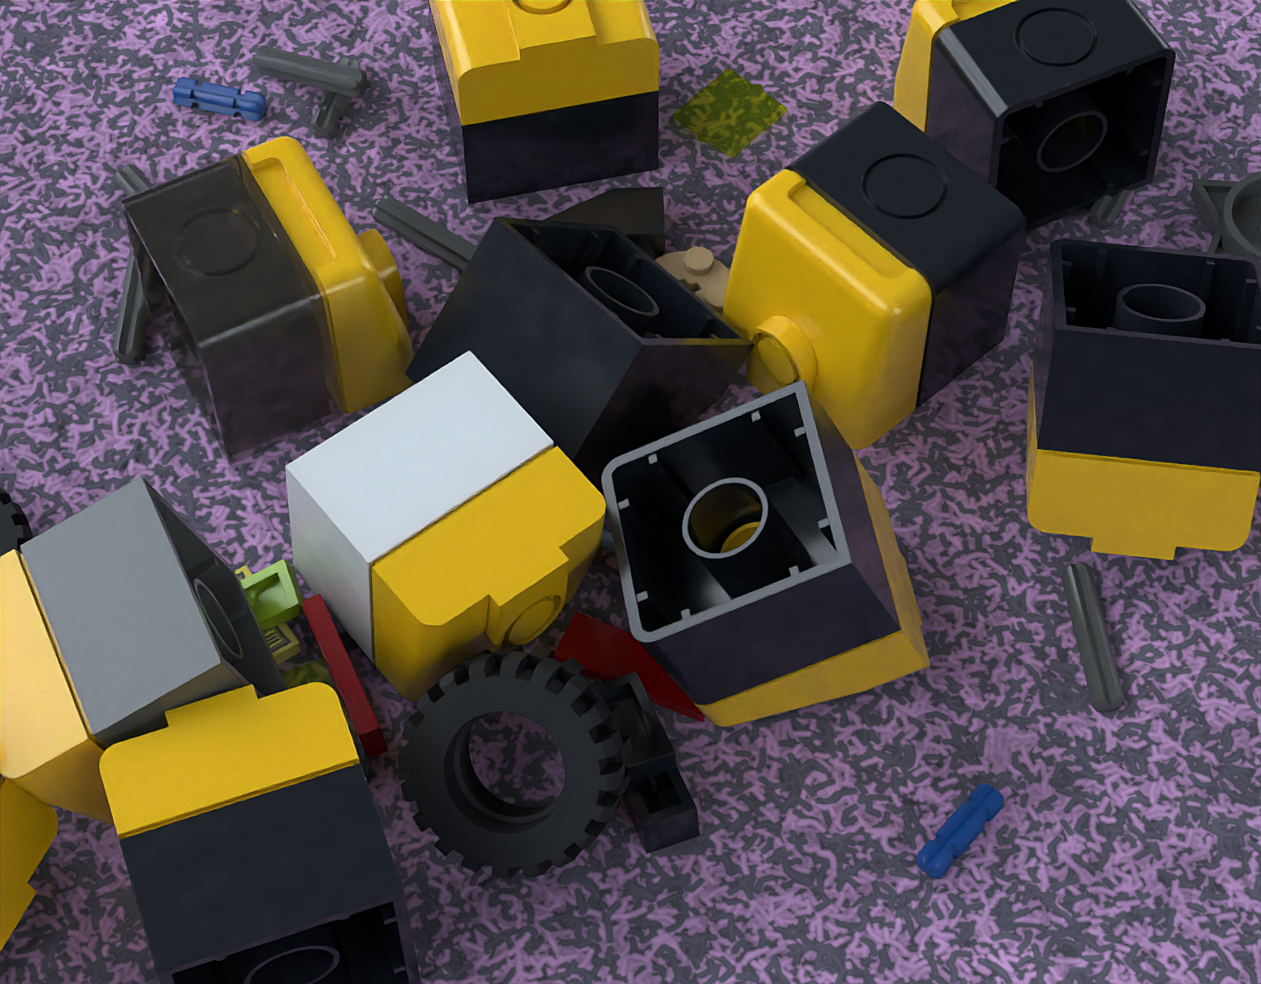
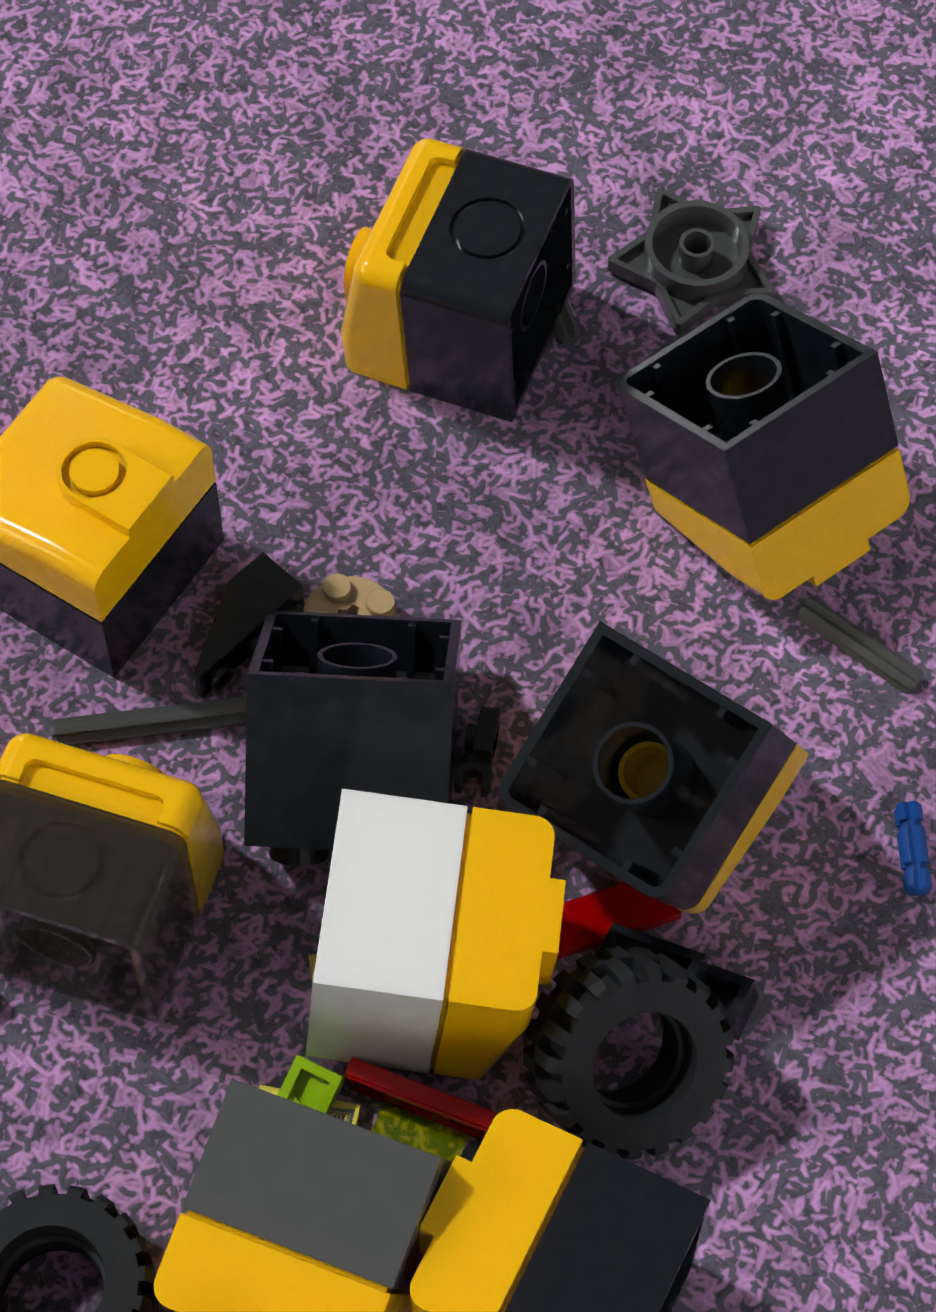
camera: 45 degrees left, 5 degrees up
(730, 113) = (238, 451): clear neon green piece -> none
(872, 272) = (496, 504): piece -> none

